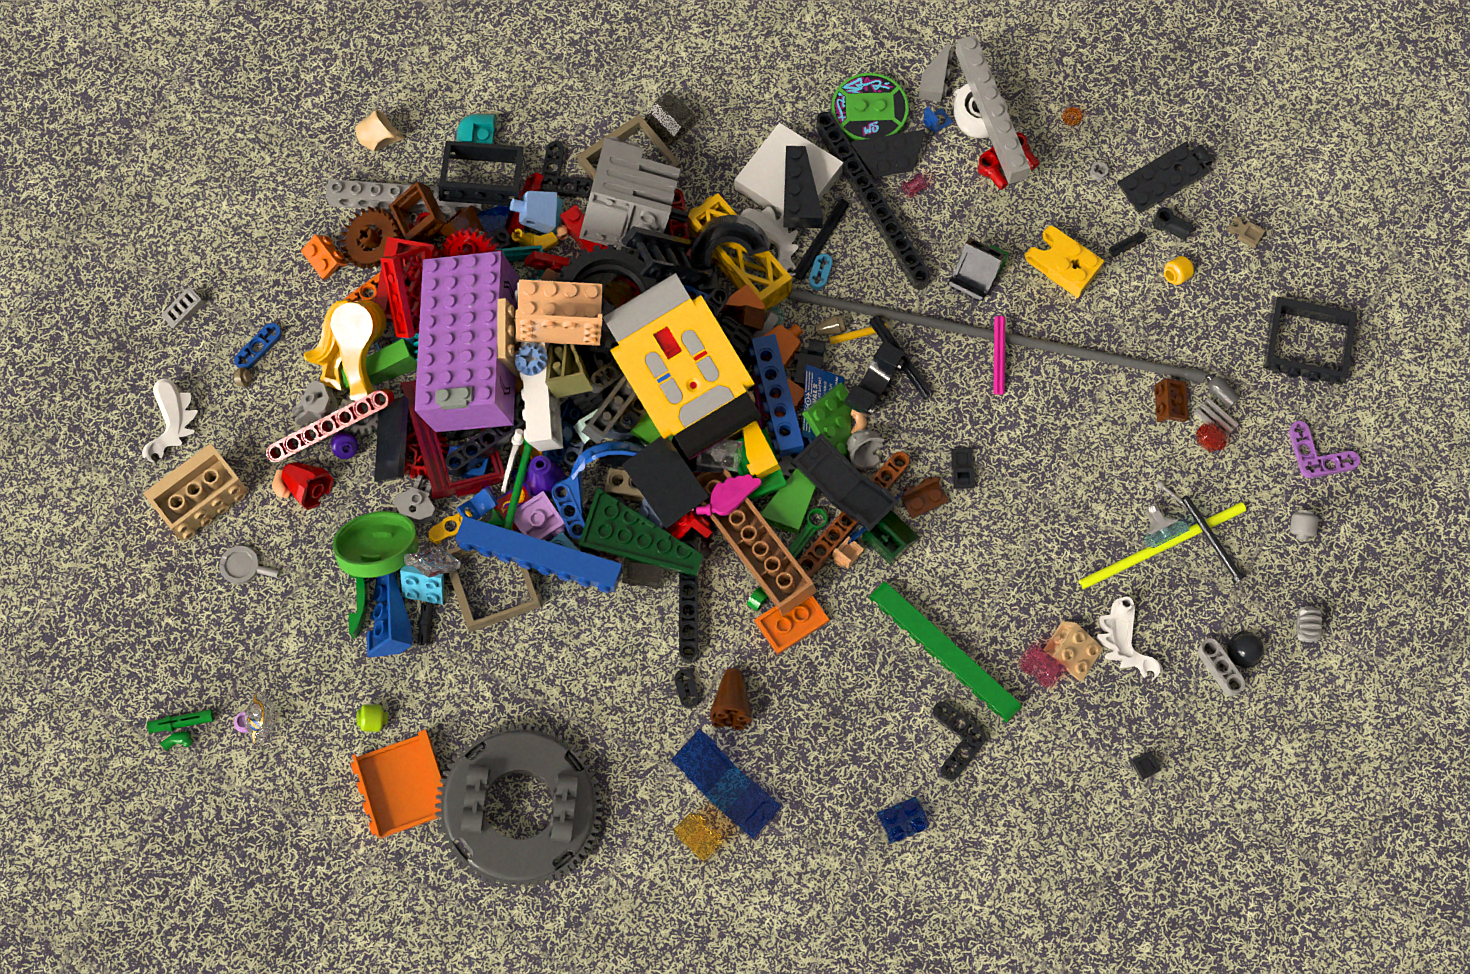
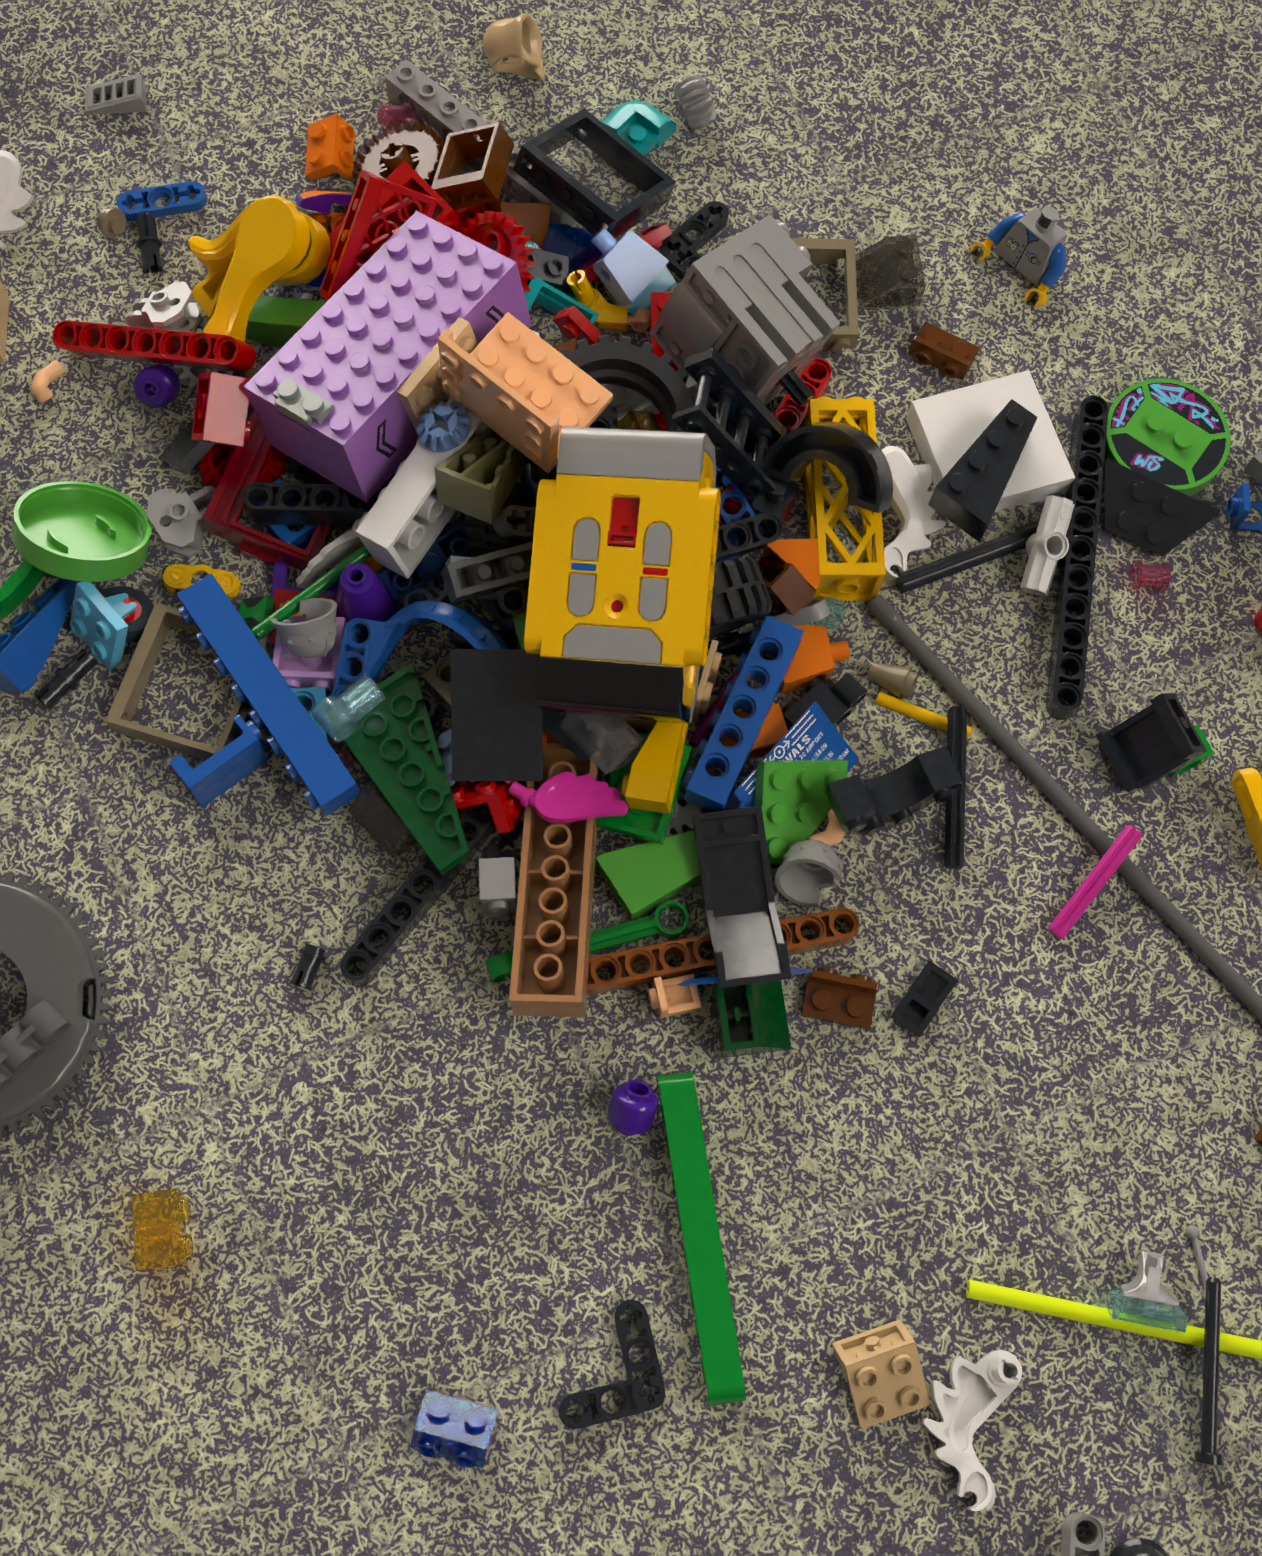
camera: 30 degrees right, 0 degrees up
(272, 374) = (149, 243): none -> black axle
(306, 481) = (68, 400): red cone -> none
(342, 213) = (396, 114): none -> clear pink pin
(347, 284) = (322, 199): none -> dark purple slope
(404, 431) = (221, 410): none -> brick
(432, 562) = (125, 603): clear plate -> none
(479, 504) = (257, 578): blue bracket -> none
(498, 96) = (695, 102): none -> light grey gear
(538, 507) = (310, 637): none -> light grey helmet
(540, 623) = (224, 767): none -> blue panel
(586, 536) = (341, 714): none -> clear light blue piece
(663, 669) = (308, 966): none -> black pin
(682, 691) = (324, 1019): black beam -> none
(725, 784) = (256, 1187): clear blue windscreen -> none
(726, 564) = (497, 888): none -> light grey brick
(727, 141) = (943, 351): none -> reddish brown bracket
(730, 54) = (1032, 247): none -> torso
(731, 702) = (356, 1078): reddish brown cone -> none
(792, 627) = (523, 1040): orange plate -> none
(824, 273) = (932, 593): dark azure beam -> none
(855, 206) = (1050, 533): none -> white piece
(869, 618) = (632, 1108): none -> dark purple head
(1041, 666) = (819, 1362): clear pink brick -> none

